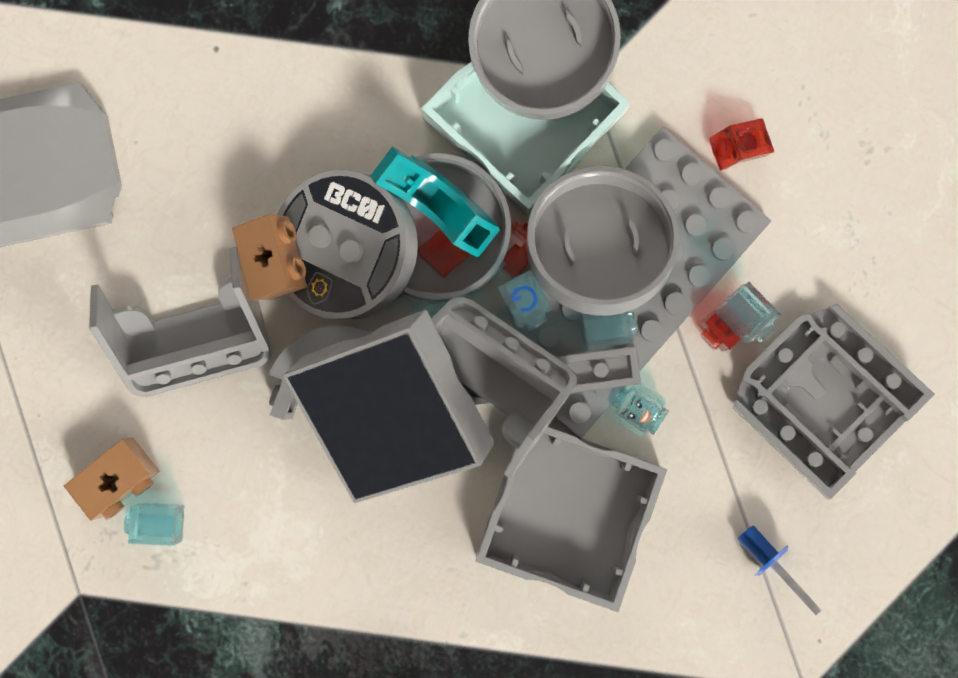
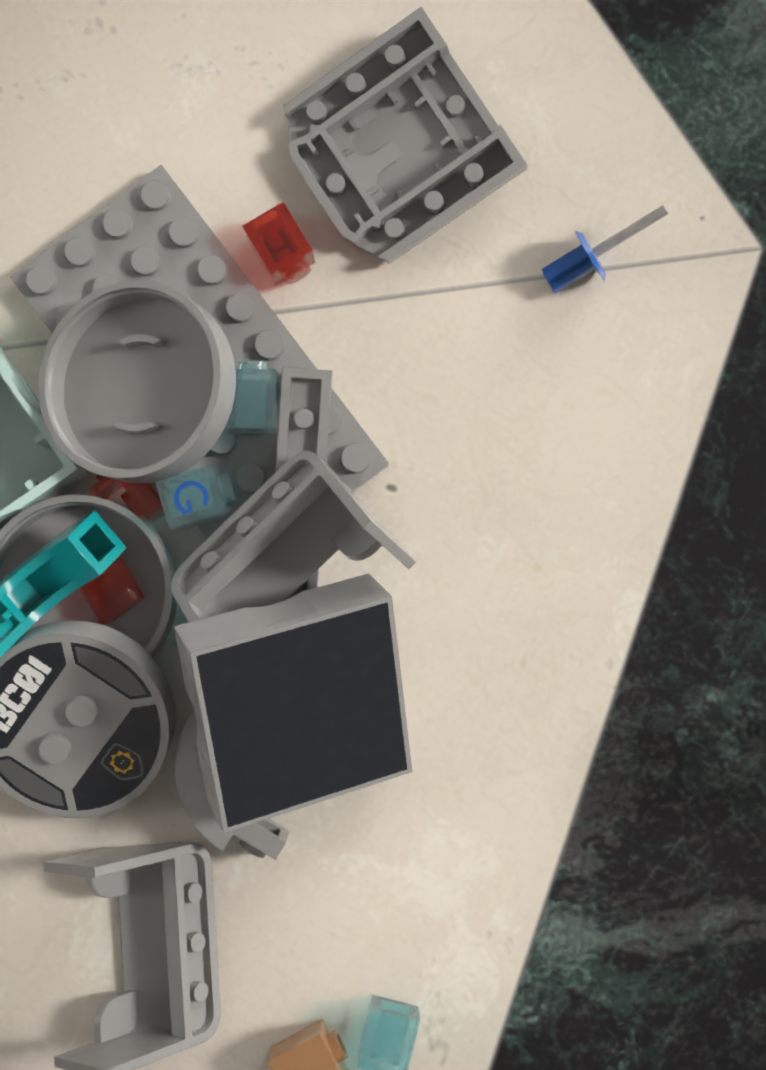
camera: 80 degrees left, 0 degrees up
(270, 257) = (67, 819): medium nougat brick -> none
(572, 517) = (485, 494): light grey tile -> none
(640, 409) = (367, 380): clear light blue head -> none
(741, 143) = (53, 181): clear red bracket -> none
(748, 313) = (270, 215): clear light blue brick -> none

